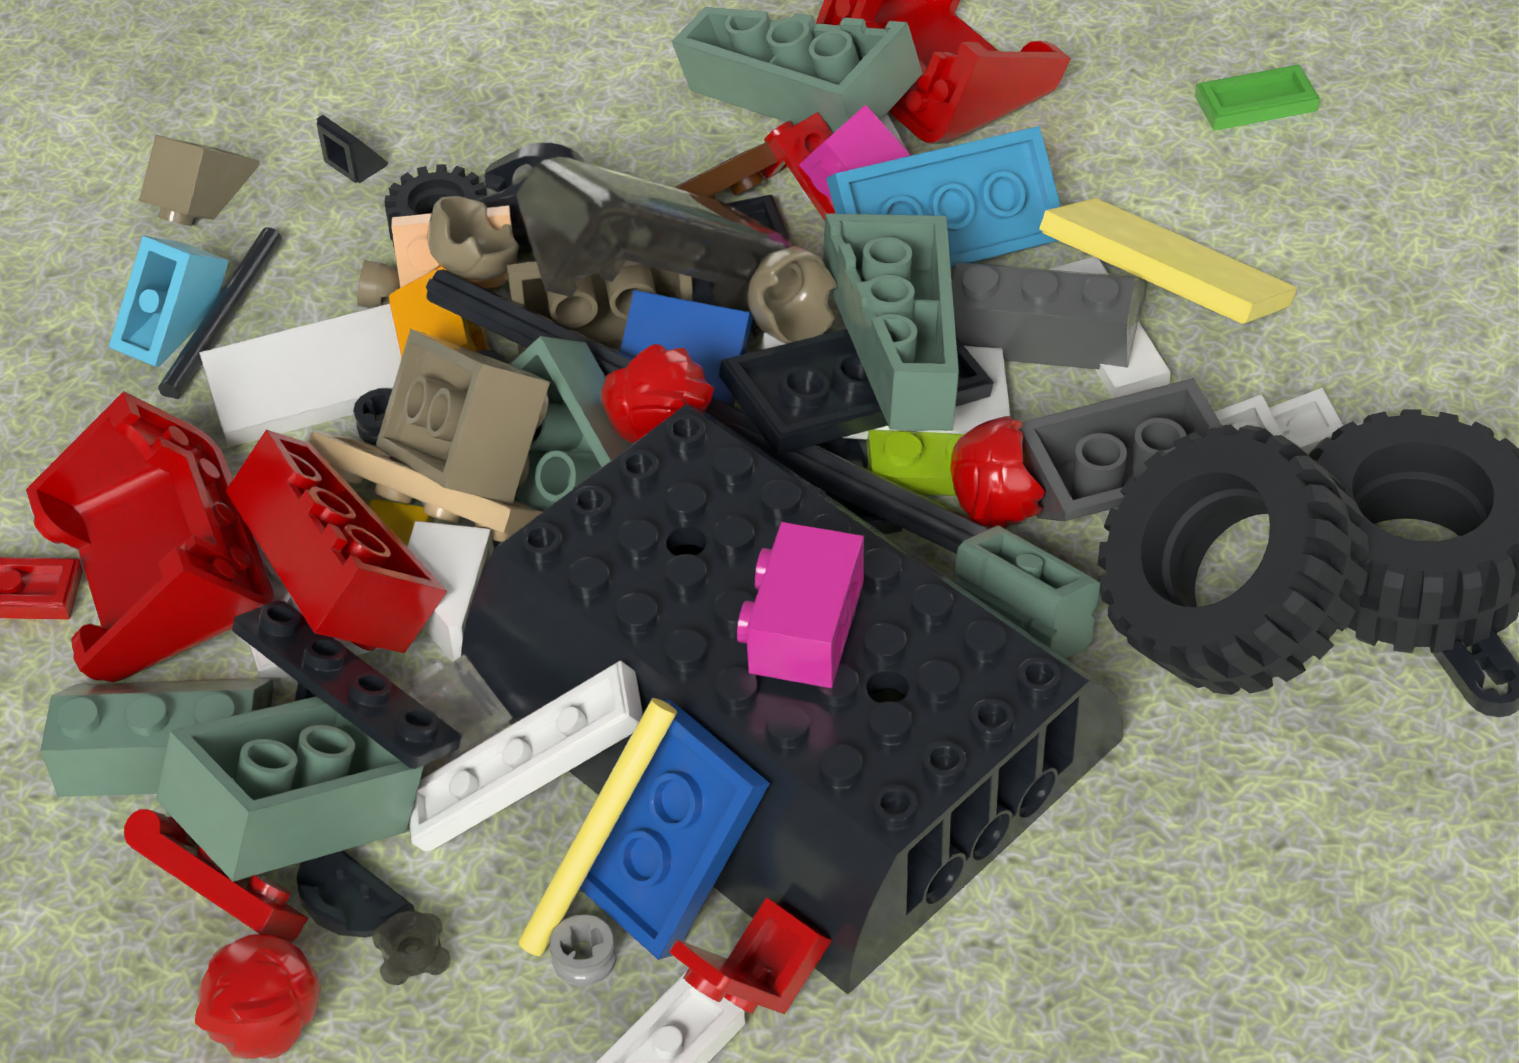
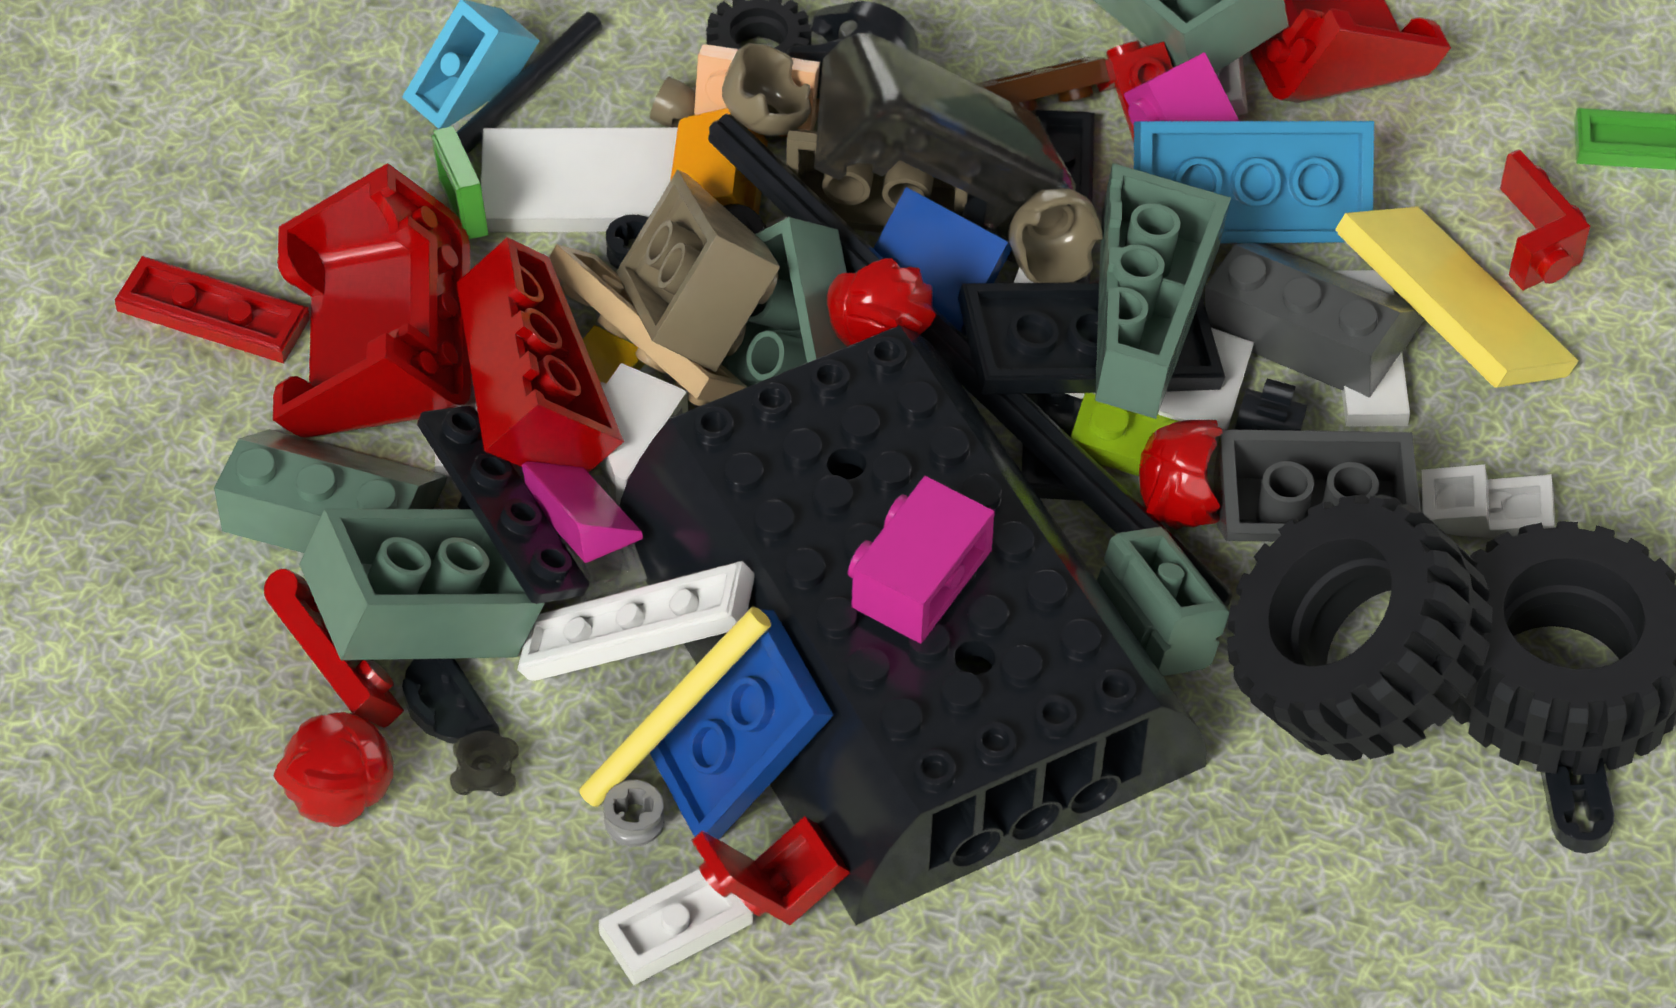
camera: 15 degrees right, 5 degrees up
(195, 400) = (459, 181): none -> bright green tile
(426, 667) = (580, 509): none -> dark pink slope
(1047, 396) = (1271, 408): none -> black gear
(1228, 180) = (1560, 226): none -> red bracket

